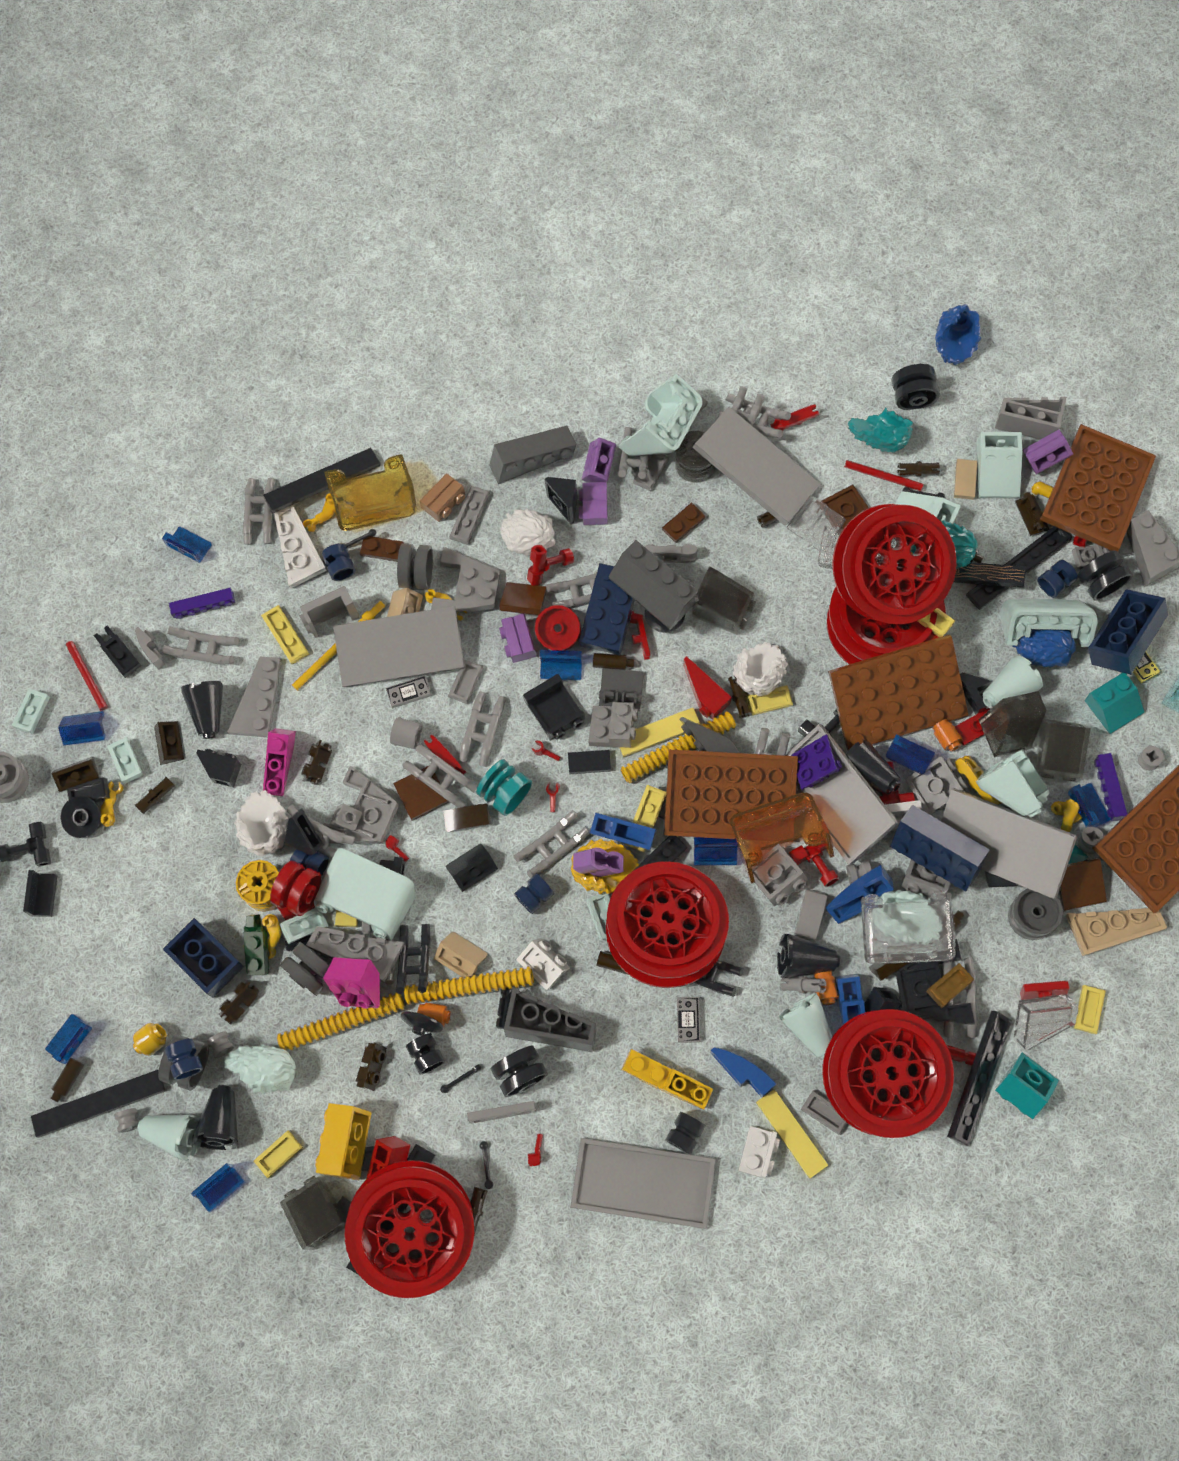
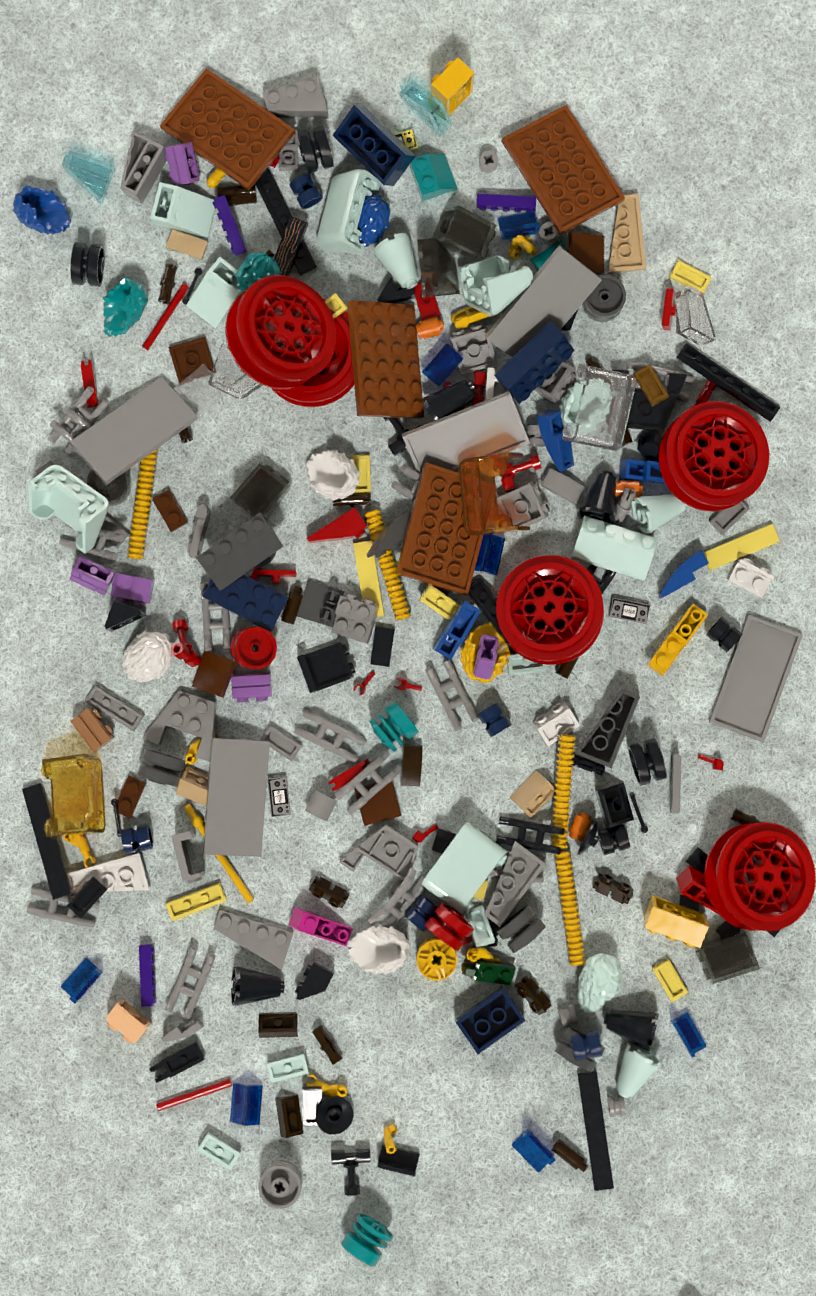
camera: 85 degrees left, 15 degrees up
(63, 879) = (388, 1138): none -> yellow arm
(149, 1039) = (550, 1077): yellow head -> none
(152, 593) = (127, 1021): none -> light nougat slope
(271, 527) = (87, 897): none -> black tile
(301, 834) = (401, 913): black slope -> none
(346, 817) = (388, 874): light grey bracket -> none
(354, 982) = (543, 889): dark pink slope -> none
(464, 1047) = (614, 805): none -> black slope
(471, 867) = (456, 770): black panel -> none
(488, 1184) = (730, 806): black hinge -> none
(530, 453) = (67, 636): dark grey wedge -> none
(565, 663) = (287, 653): clear blue panel -> none
(683, 494) = (142, 506): none -> yellow piece
(754, 984) = (614, 548): none -> light aqua slope
(816, 762) = (436, 448): dark purple hinge -> none
(997, 511) = (229, 225): none -> dark purple piece
(1009, 373) = (89, 174): none -> clear light blue slope
(1027, 1086) = (743, 345): teal slope -> none

